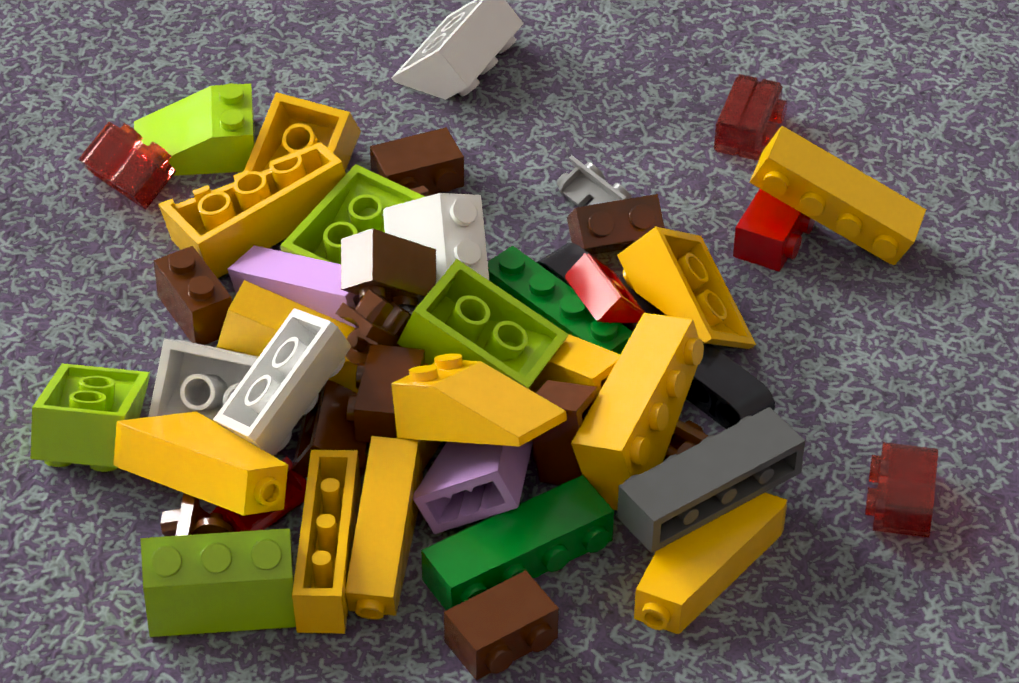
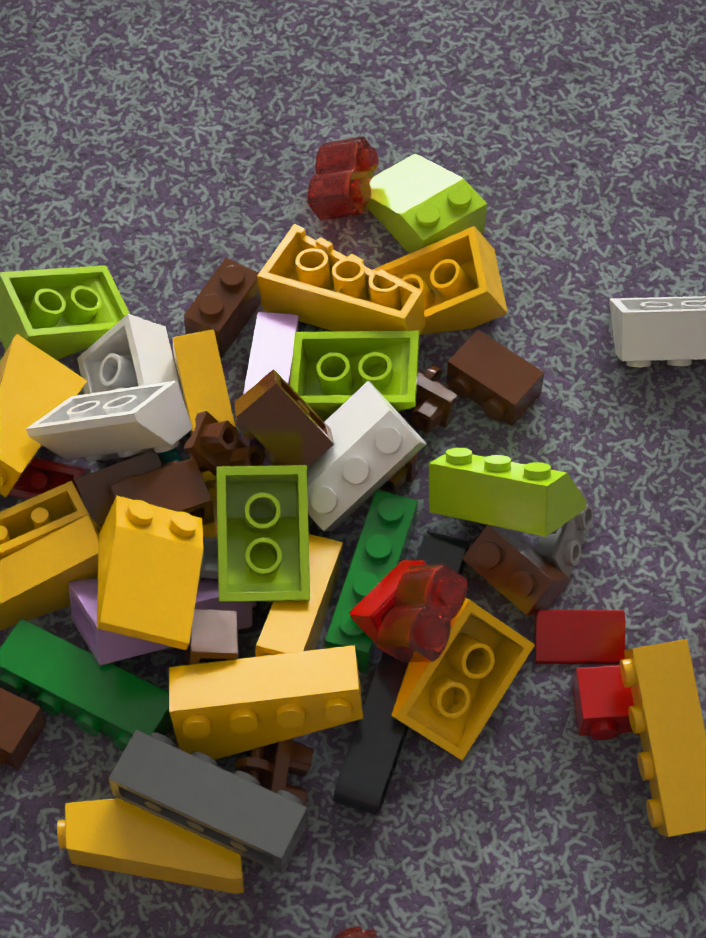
camera: 60 degrees right, 15 degrees up
(553, 184) = (502, 492): none -> lime slope
(641, 265) = (422, 613): none -> clear red brick
(703, 216) = (579, 636): none -> red slope

